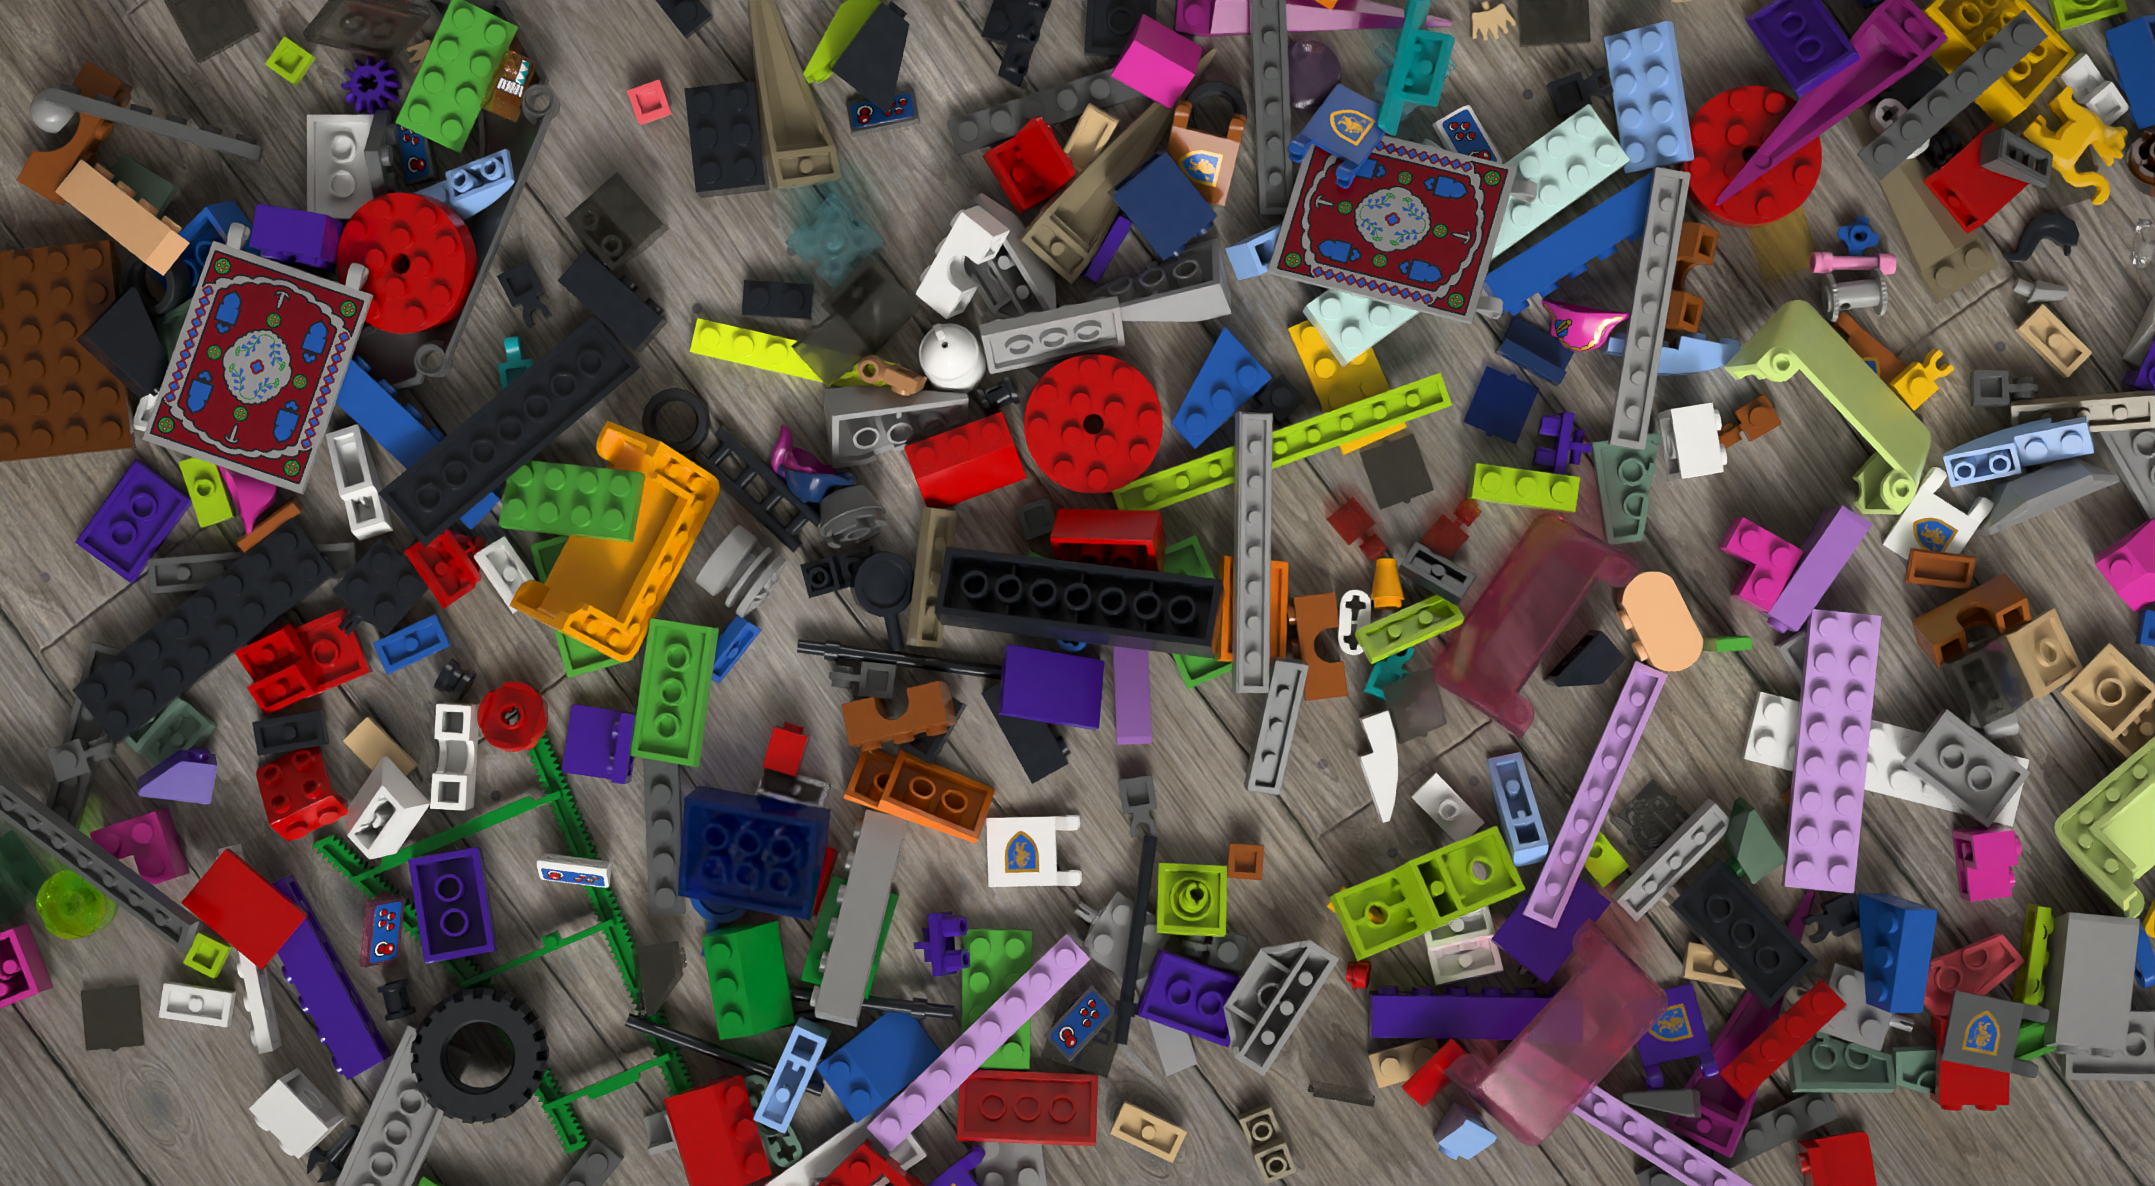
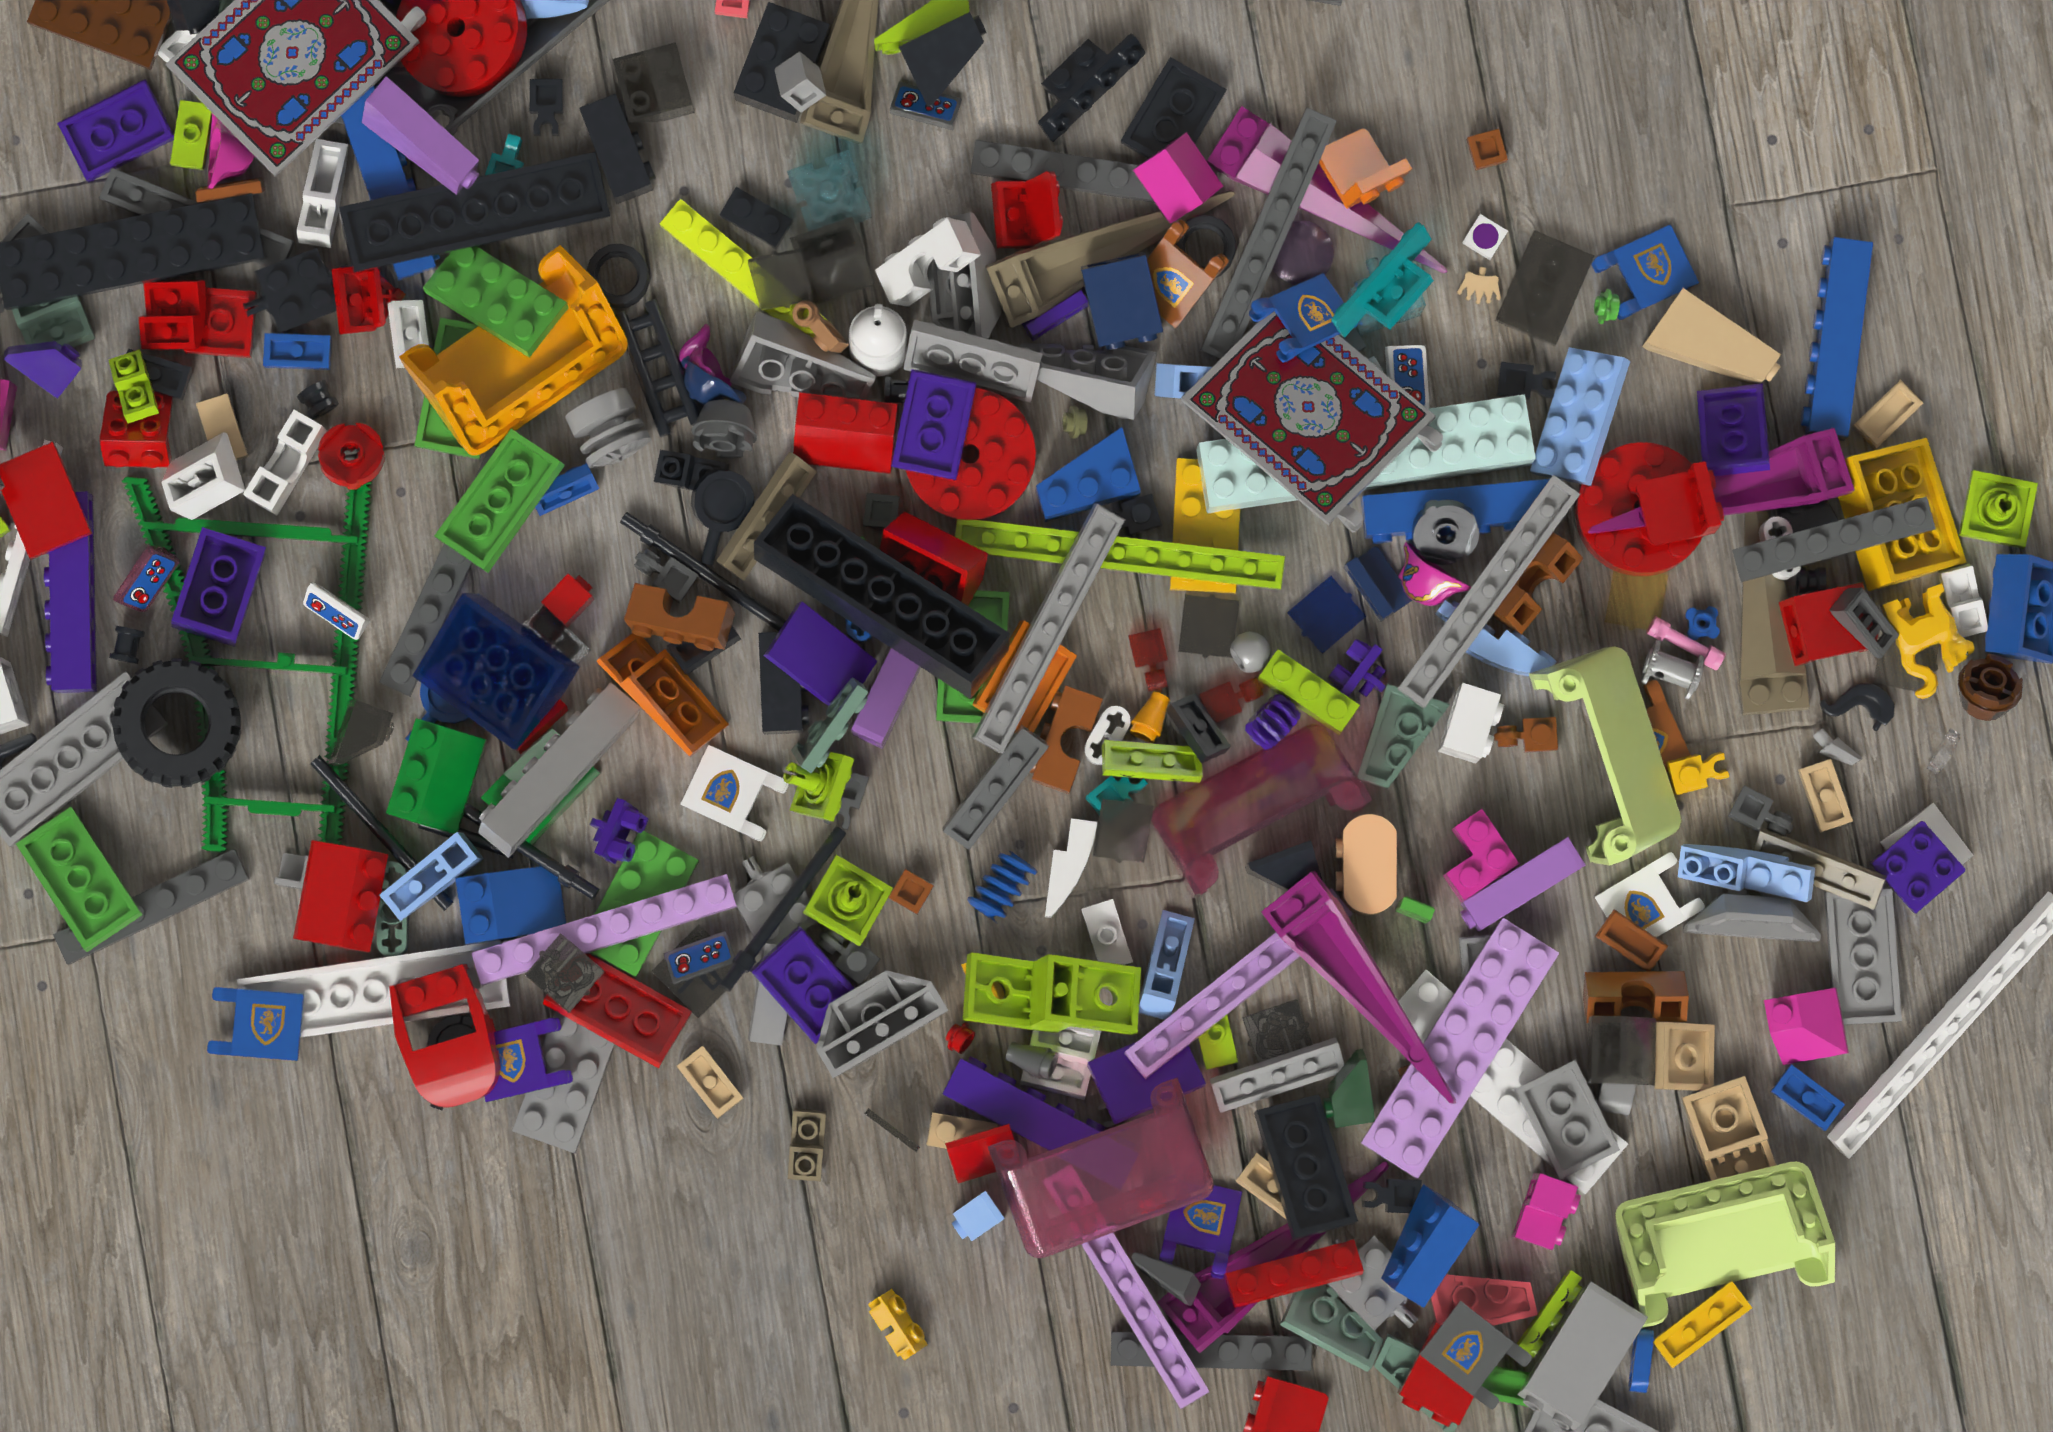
camera: 25 degrees right, 5 degrees down
(275, 756) = (133, 386): none -> lime slope
(419, 387) = (419, 136): none -> medium lavender slope
(600, 743) = (412, 515): dark purple bracket -> none
(754, 150) = (800, 82): none -> light grey panel
(963, 1104) = (564, 973): none -> clear smoke piece
(1047, 414) = (933, 424): none -> dark purple tile
(1089, 136) = (1089, 212): tan tile -> none
(1091, 758) = (823, 733): none -> sand green wing
(1110, 805) = (821, 791): none -> lime plate
(1175, 342) = (1075, 422): none -> olive plate
(1328, 813) = (1001, 886): none -> blue piece
(1440, 961) = (1033, 1059): none -> dark grey cone
(1449, 476) = (1250, 651): none -> light grey piece
(1504, 533) = (1272, 721): none -> dark purple gear
(1567, 260) = (1438, 515): none -> plate
(1658, 713) = (1324, 936): none -> magenta plate
(1793, 135) = (1680, 505): none -> red bracket

